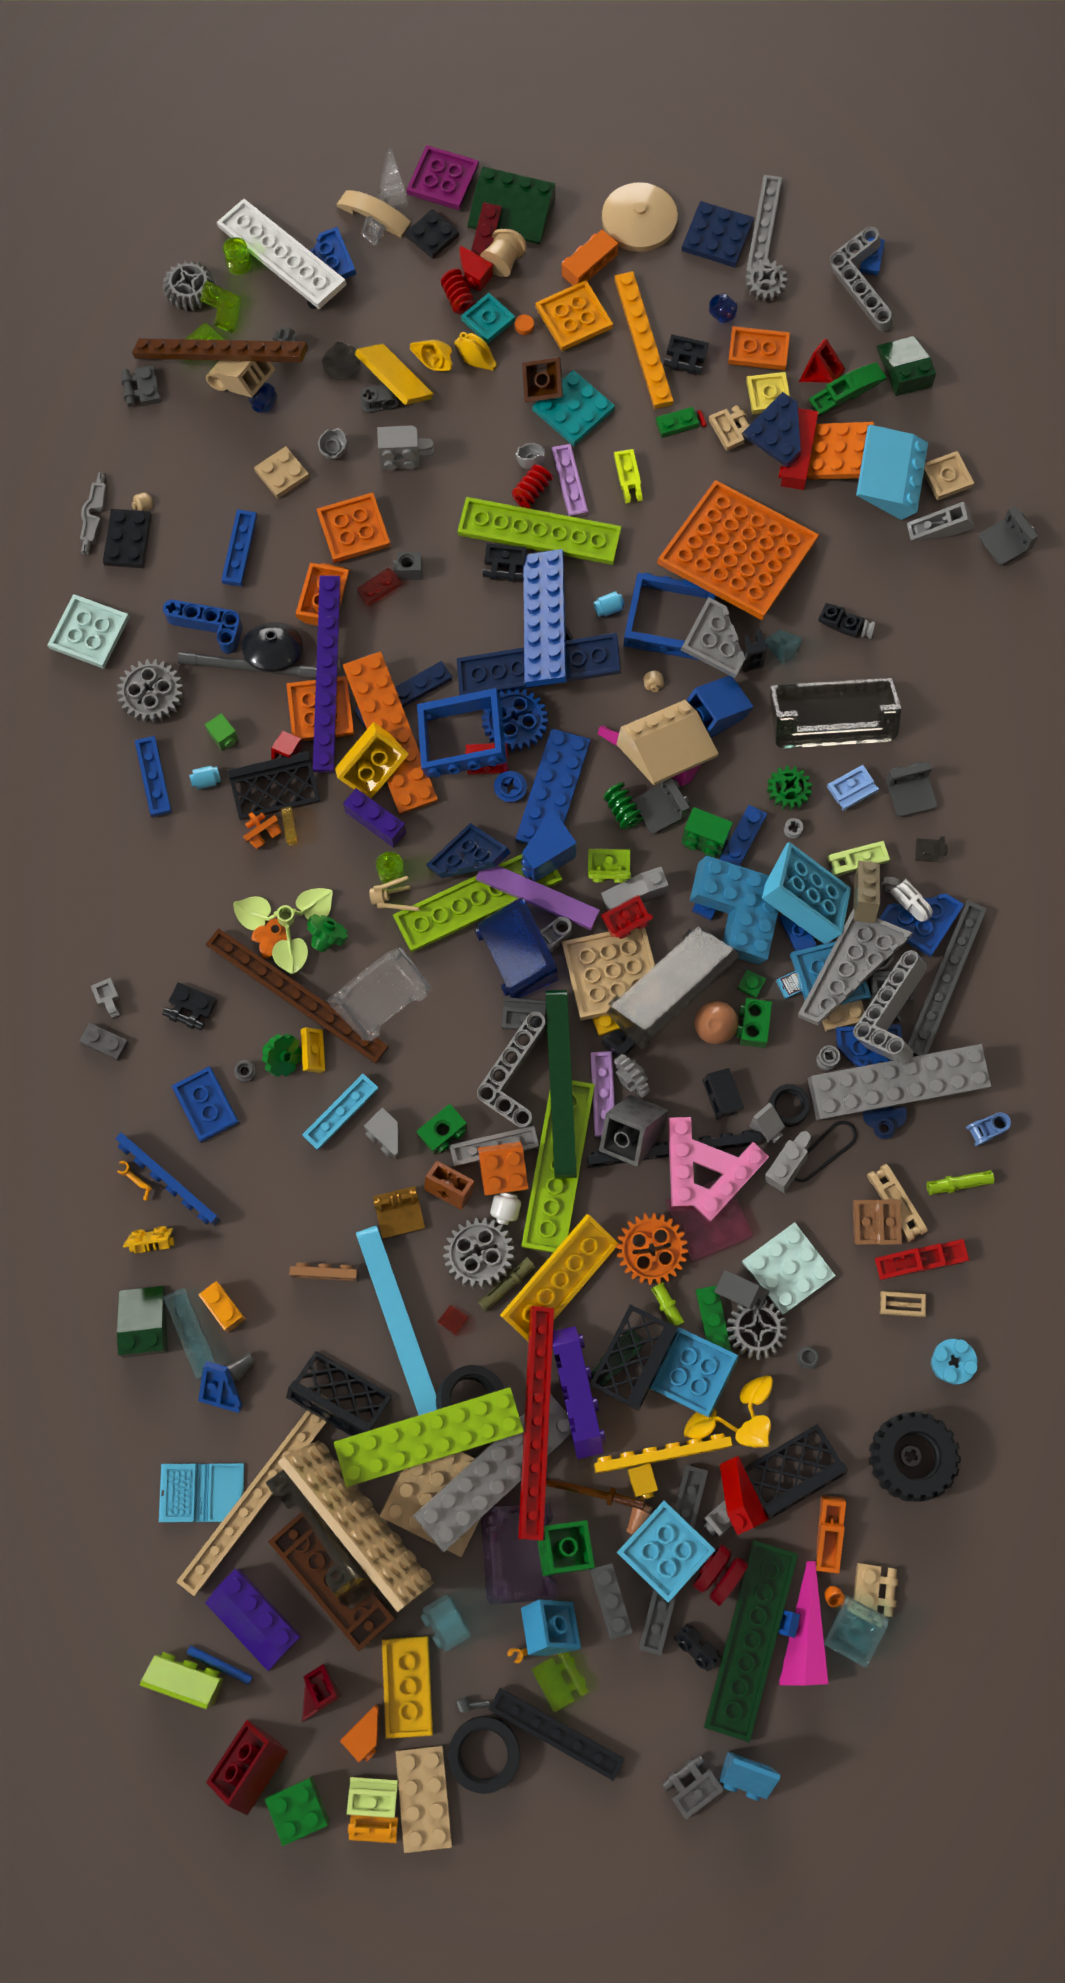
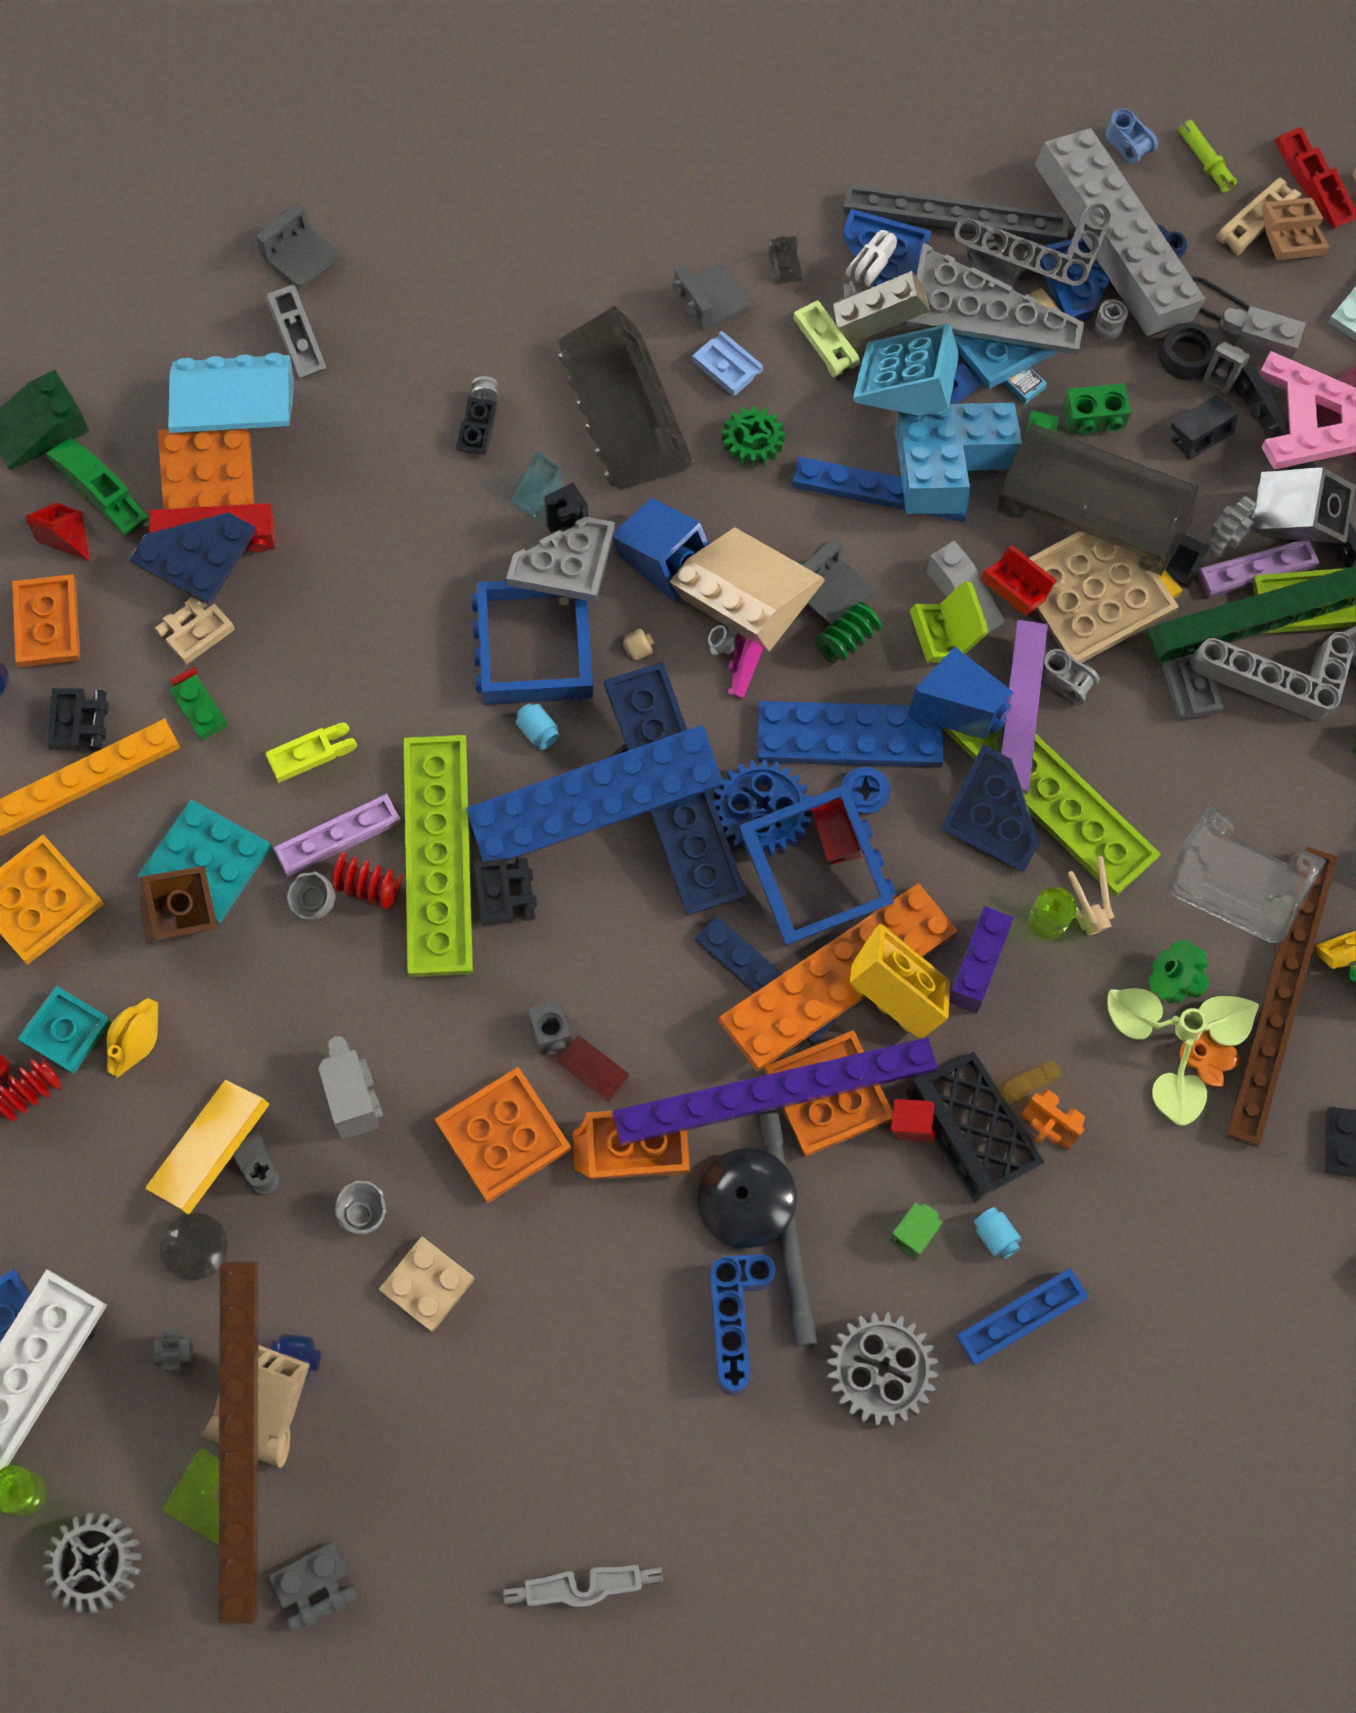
camera: 110 degrees left, 5 degrees down
(88, 631) = (807, 1512): light aqua plate -> none
(127, 538) = (615, 1508): black plate -> none
(142, 502) = (539, 1506): tan piece -> none
(226, 304) = (119, 1479): clear neon green plate -> none
(239, 548) = (586, 1307): blue plate -> none
(433, 354) = (153, 1093): yellow hat -> none
(518, 949) = (1107, 712): clear blue windscreen -> none
(524, 324) = (64, 973): orange tile -> none
(706, 833) = (862, 512): green brick -> none
(716, 1022) = (1122, 438): nougat piece -> none
(738, 549) = (406, 569): orange plate -> none
(765, 389) = (122, 592): light yellow plate -> none
(793, 835) = (810, 416): light grey bush -> none
(947, 475) = (213, 334): tan plate -> none

